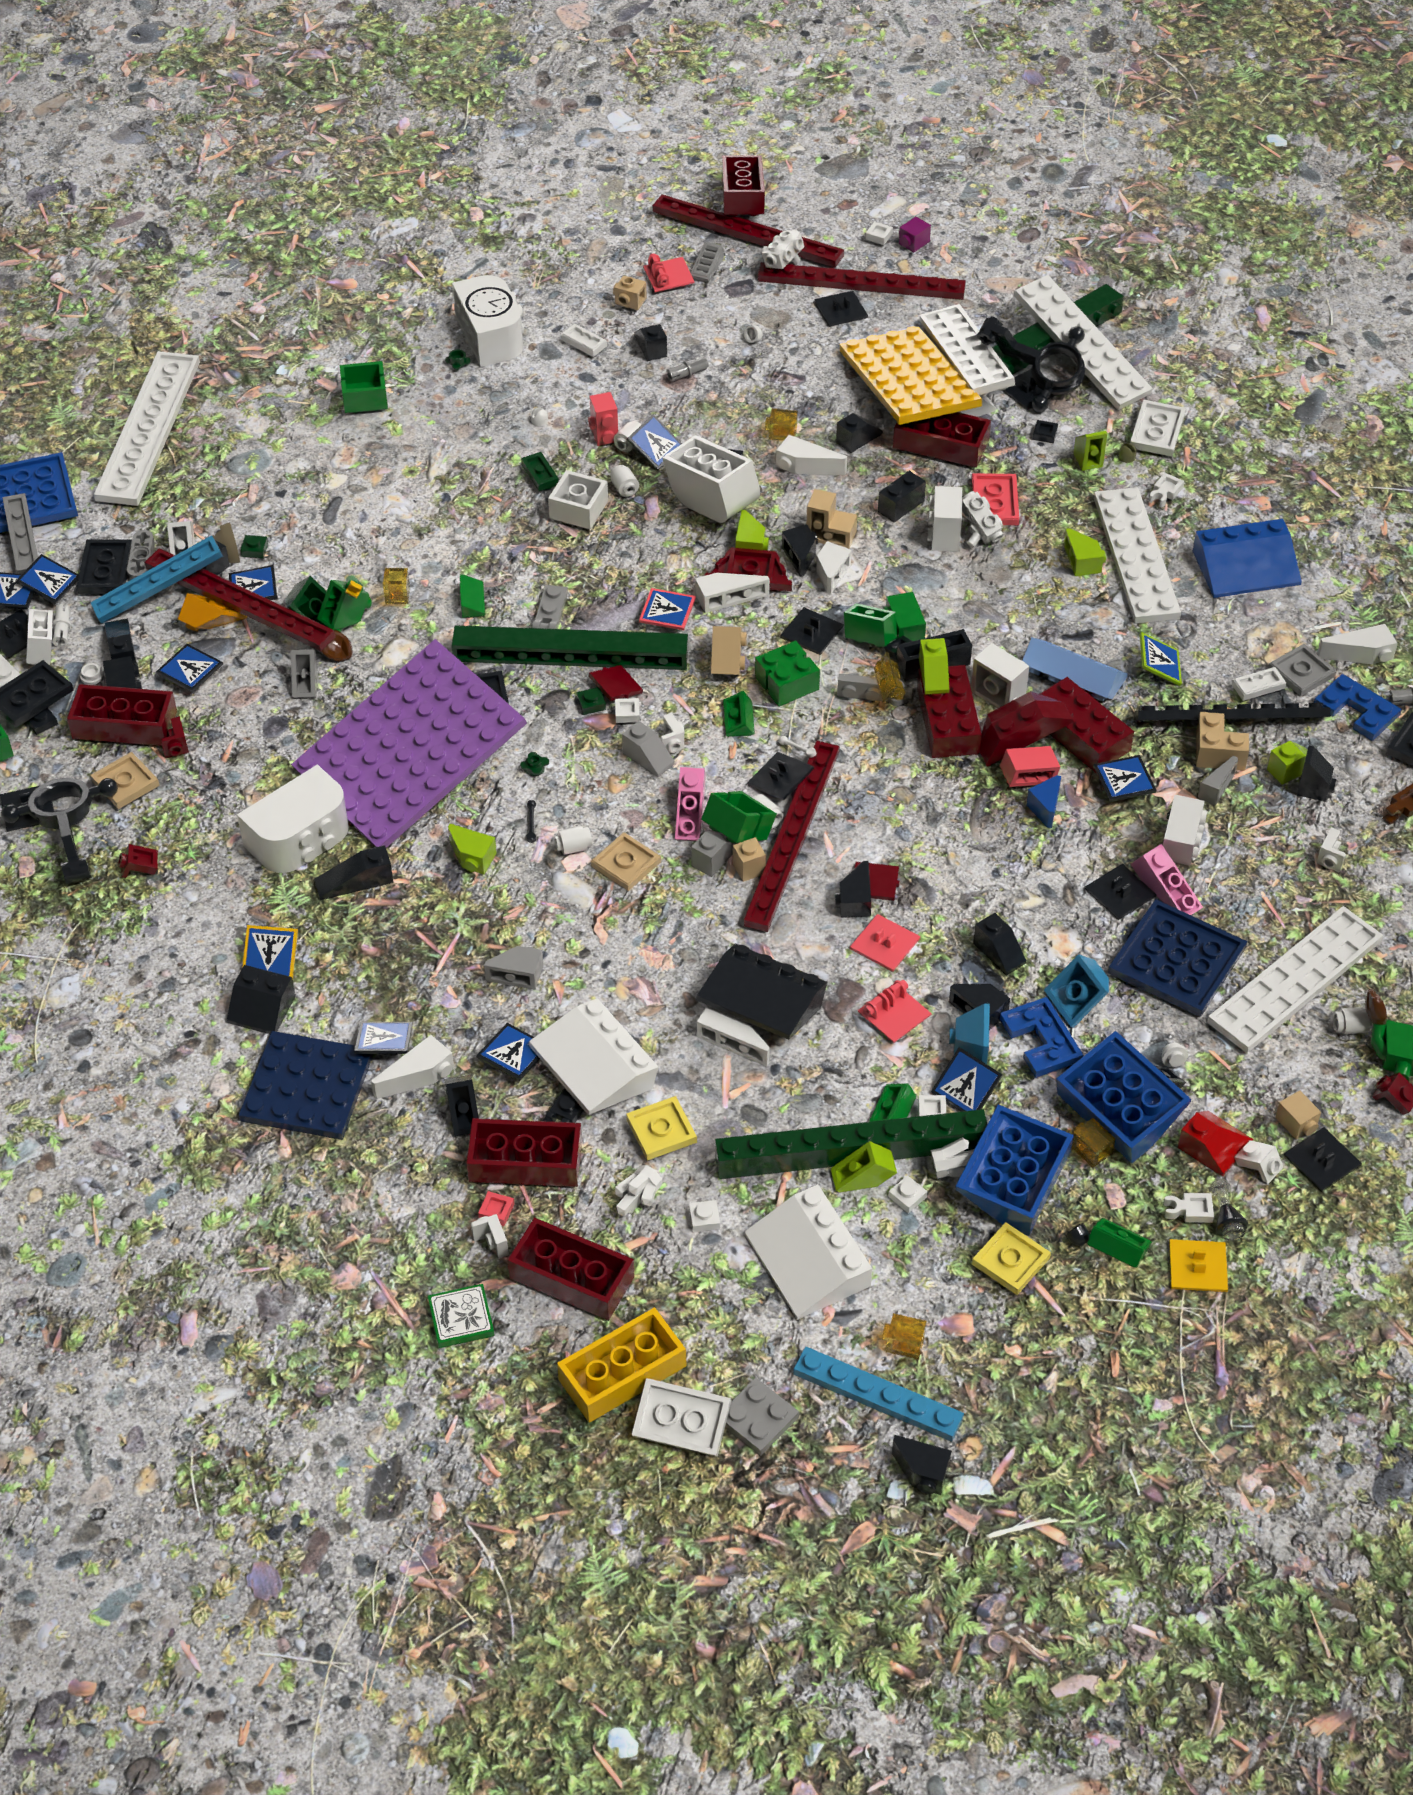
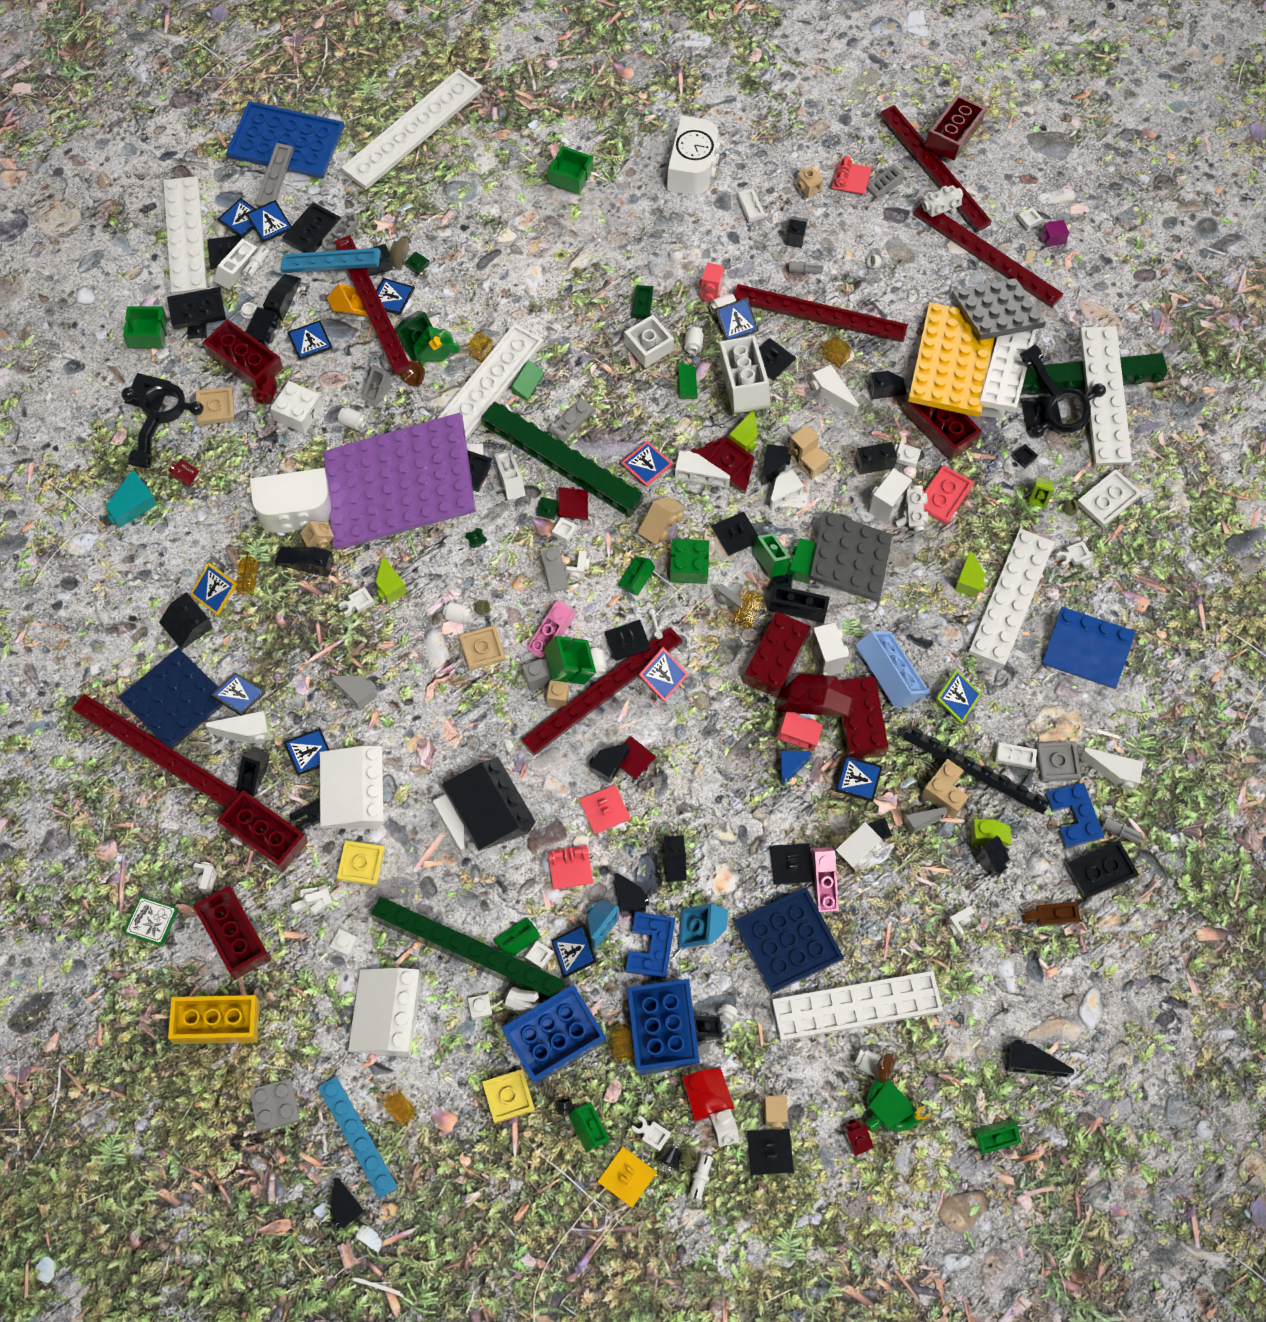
camera: 30 degrees right, 15 degrees up
(97, 916) = (129, 501): none -> teal slope
(180, 536) = (371, 233): white slope -> none
(226, 736) = (296, 407): none -> white brick
(292, 915) = (248, 568): none -> clear yellow hinge
(300, 718) = (352, 418): none -> white brick
(327, 1144) = (155, 751): none -> dark red plate
(351, 840) = (317, 534): none -> tan brick
(431, 601) = (493, 376): none -> white plate
(449, 883) = (359, 600): none -> white plate
(457, 359) = (653, 177): dark green plate -> none
(497, 1204) = (221, 859): coral plate -> none
(530, 688) = (510, 475): none -> white slope
(531, 836) = (436, 593): black hinge -> none
(595, 823) = (482, 607): none -> olive hinge
(645, 521) = (687, 381): none -> green slope
(681, 1417) = (224, 1079): white plate -> none
(741, 399) = (822, 313): none -> dark red plate
(841, 308) = (955, 270): black piece -> none
(845, 786) = (663, 674): none -> piece
(864, 1168) = (463, 973): lime slope -> none
(915, 316) = (998, 309): none -> plate
(932, 479) = (906, 454): none -> white bracket
(934, 666) = (781, 618): lime slope -> none
(949, 590) = (850, 556): none -> dark grey plate
(1247, 1206) = (689, 1157): none -> olive hinge
(1274, 1220) = (700, 1177): none -> white pin

